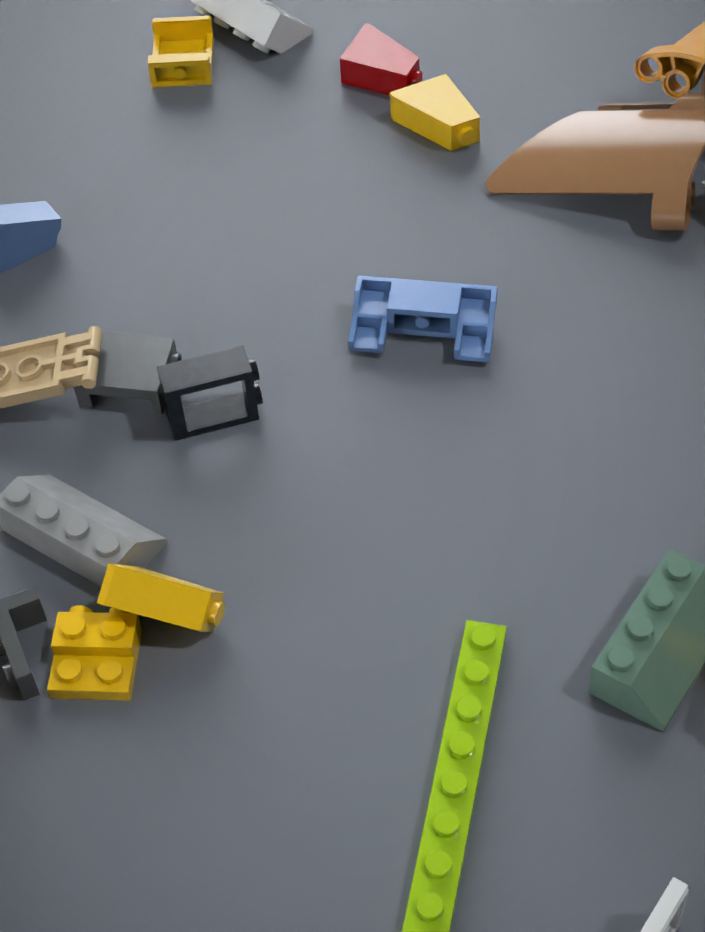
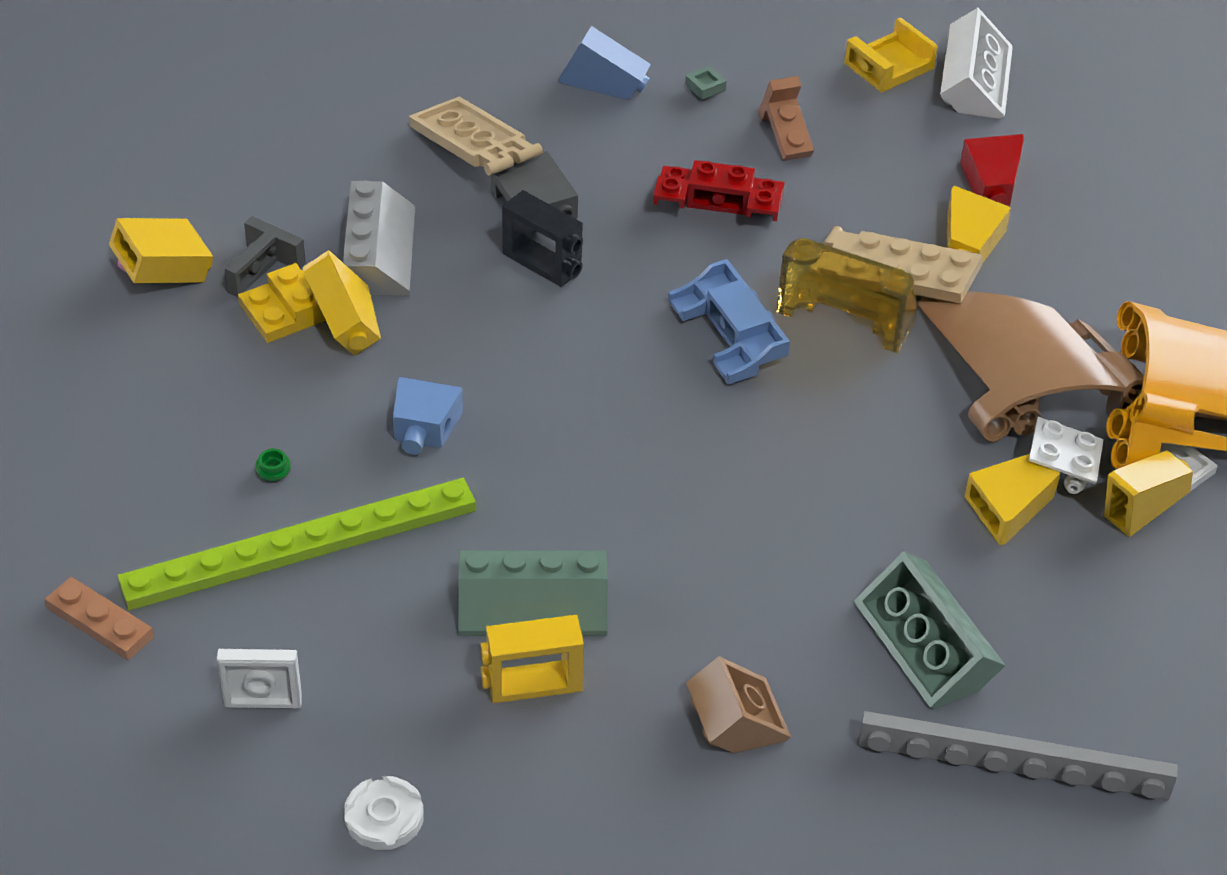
camera: 50 degrees right, 5 degrees down
(95, 181) = (705, 82): none -> sand green plate
(202, 152) = (786, 119): none -> nougat bracket
(245, 240) = (720, 189): none -> red bracket
(322, 770) = (273, 465): none -> green plate
(357, 610) = (425, 413): none -> medium blue torso
(441, 177) = (935, 269): none -> tan hinge
(492, 200) = (849, 283): none -> clear yellow windscreen

